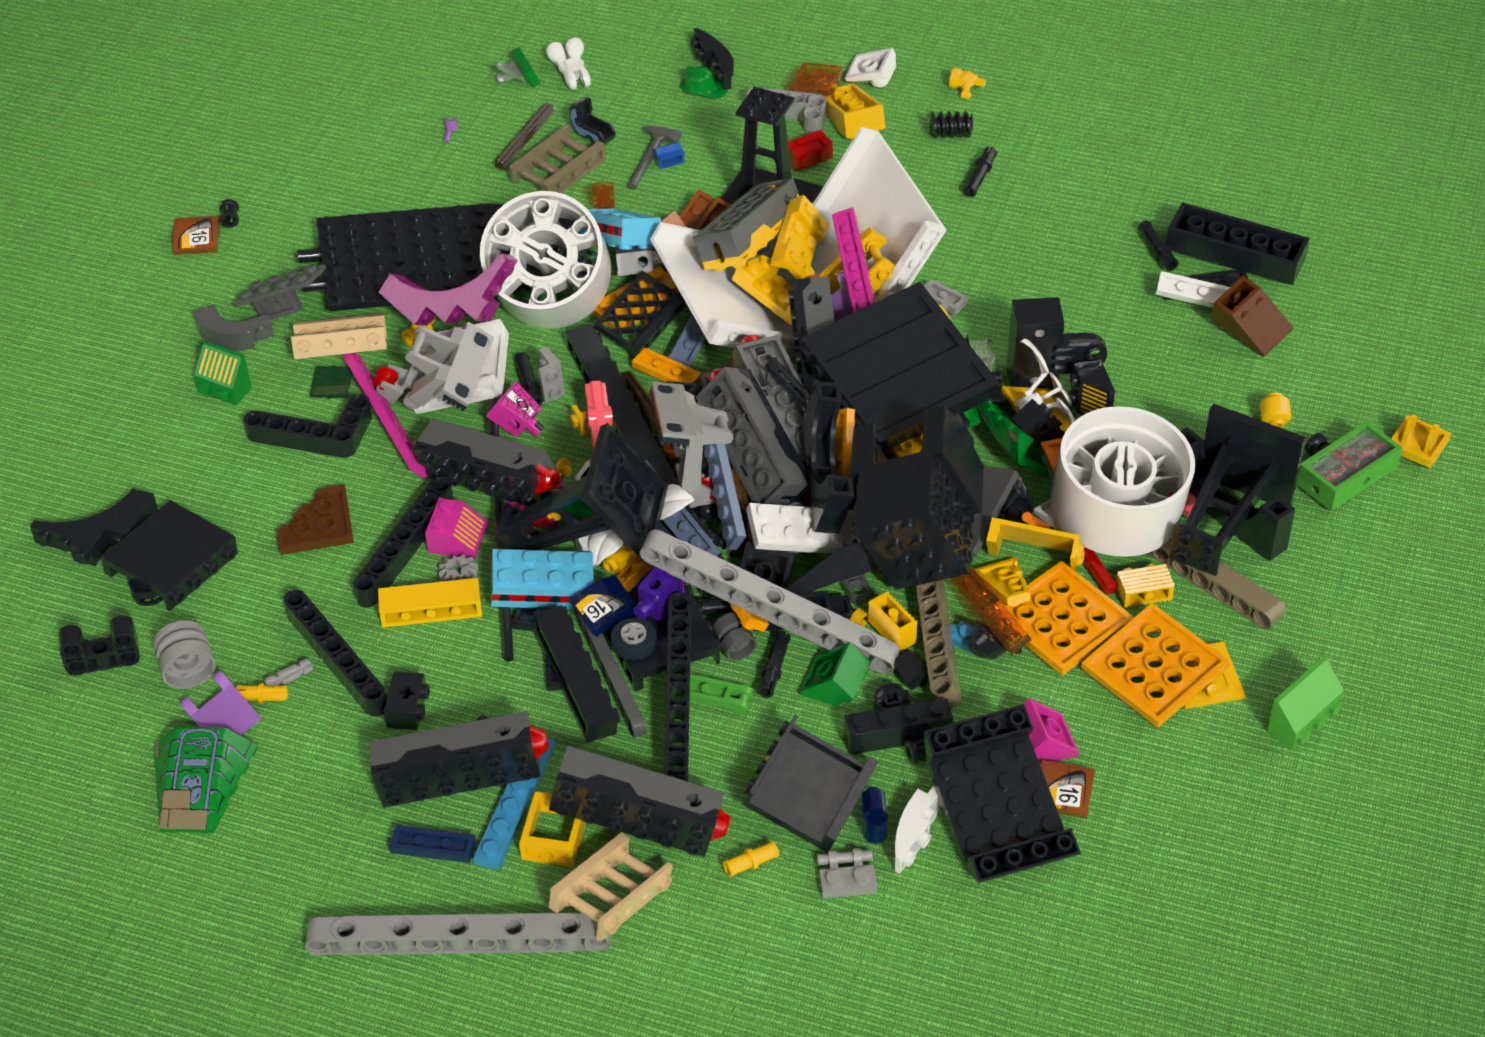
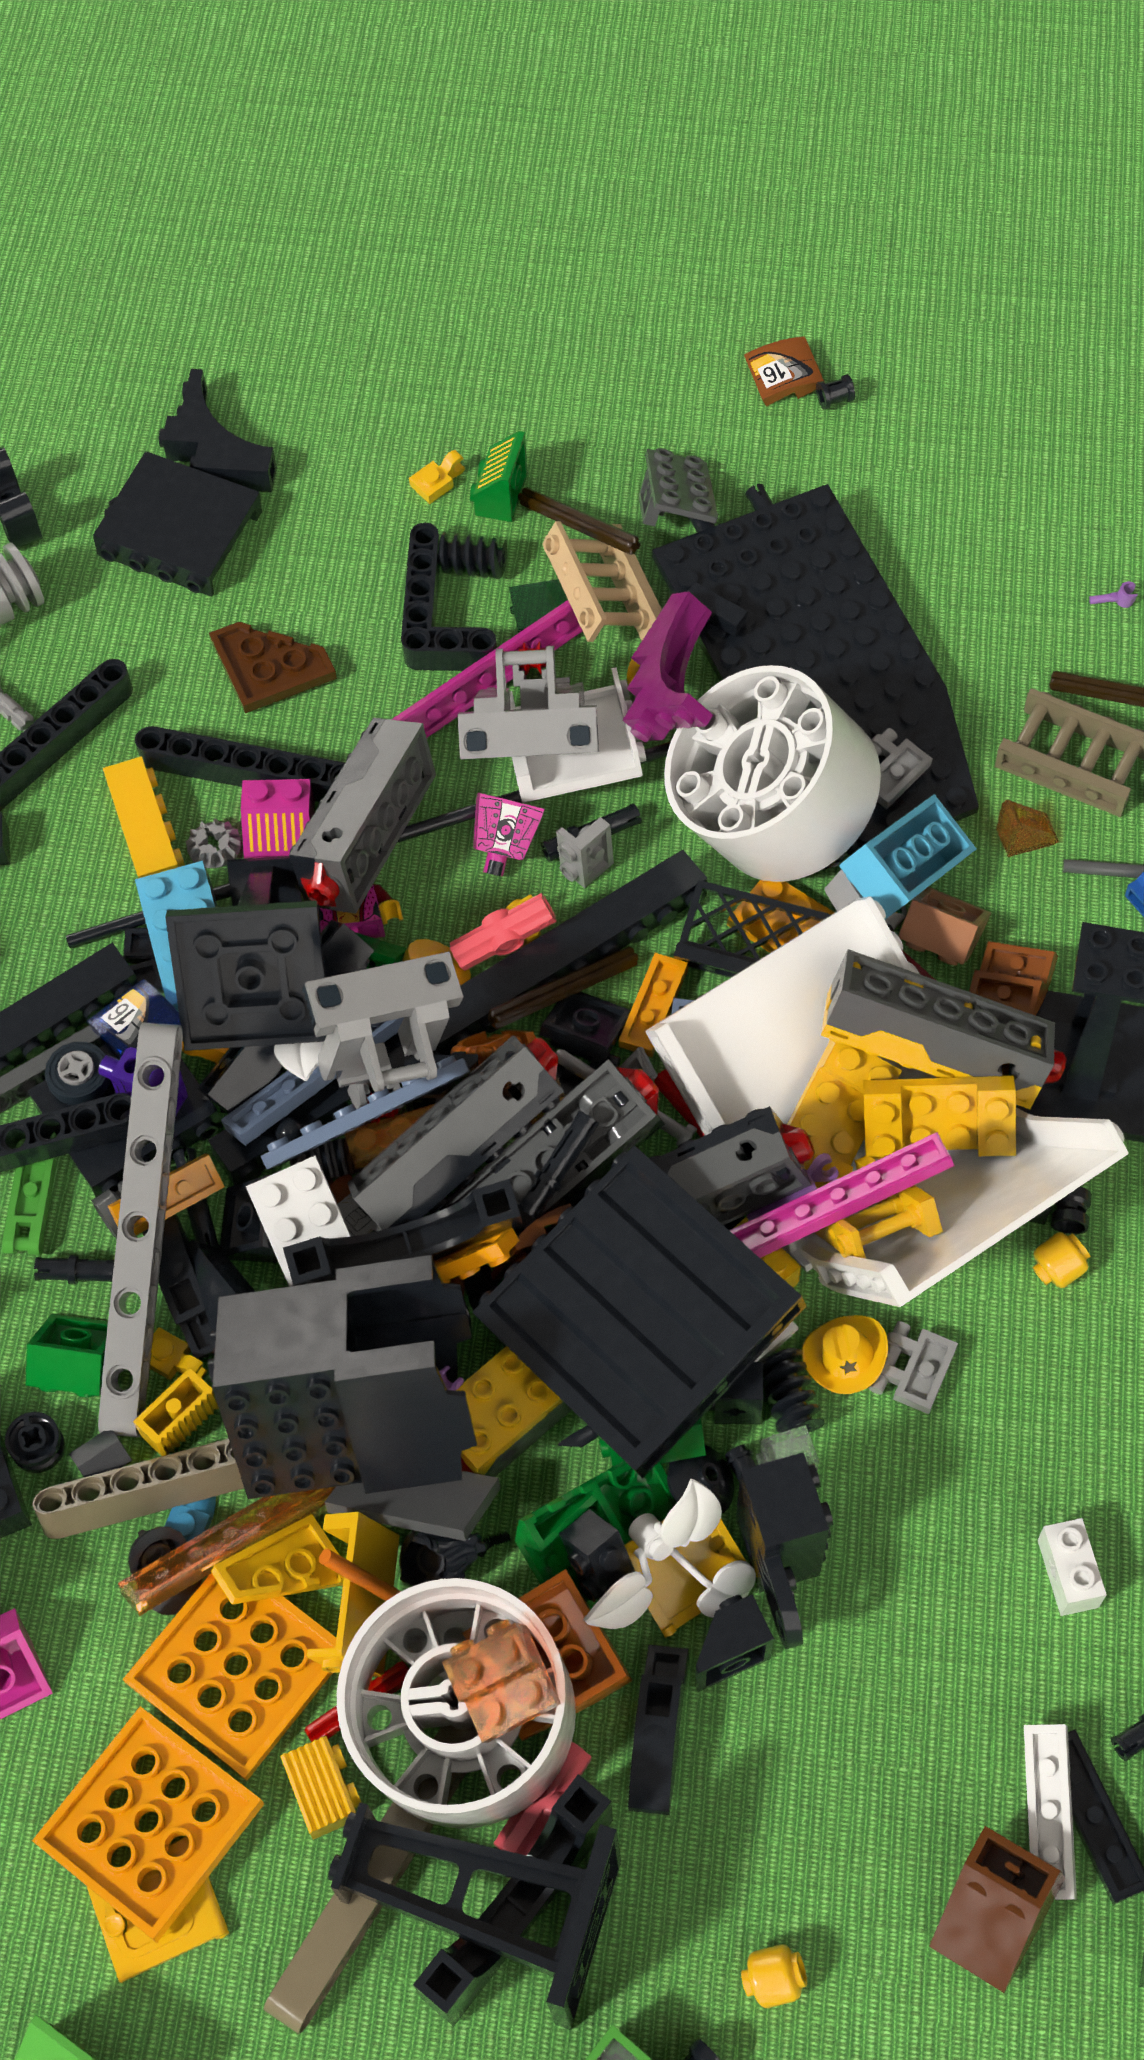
camera: 80 degrees right, 15 degrees up
(196, 418) = (436, 480): none -> yellow plate
(231, 334) = (597, 446): dark grey arch -> none
(281, 398) = (472, 557): none -> black piece
(284, 338) = (579, 521): none -> dark brown axle
(1071, 260) = (1071, 1567): none -> white brick
(1124, 432) = (501, 1679): none -> clear orange plate

